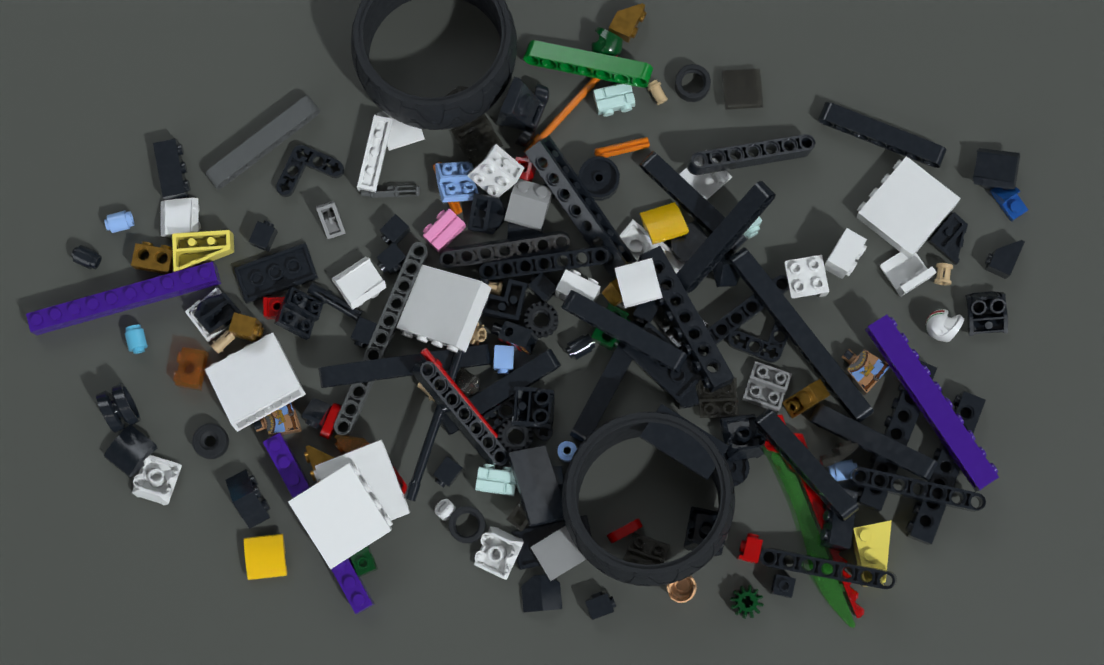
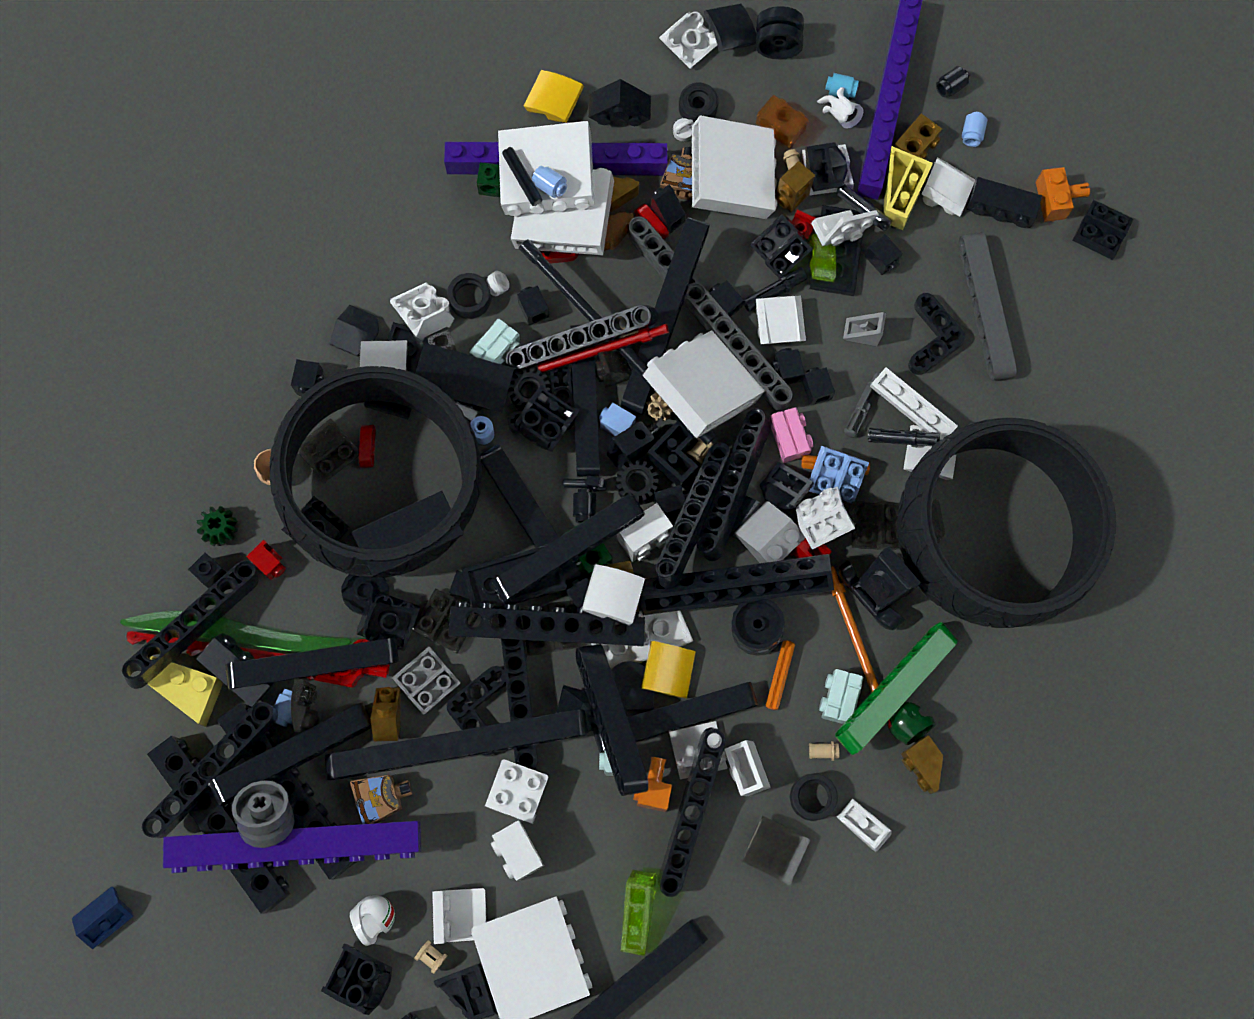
camera: 115 degrees right, 5 degrees down
(142, 134) = (1058, 194): none -> orange brick
(152, 89) = (1102, 229): none -> black slope
(157, 329) = (842, 108): none -> white piece
(232, 269) = (863, 206): none -> black axle
(238, 441) = (683, 129): none -> white tile
(262, 275) = (842, 226): none -> white bracket
(291, 276) = (823, 260): none -> clear neon green slope
(356, 499) = (549, 181): none -> light blue brick
(361, 525) = (522, 176): none -> black axle
(402, 149) = (914, 438): none -> black pin
(563, 356) = (595, 483): none -> black bar
(691, 42) = (864, 825): none -> white slope
(700, 134) = (747, 768): none -> white brick
(748, 181) = (658, 792): none -> orange brick
(834, 156) = (638, 911): none -> clear neon green slope
(926, 429) = (263, 814): none -> dark grey wheel
(1051, 509) = (101, 918): none -> dark blue panel

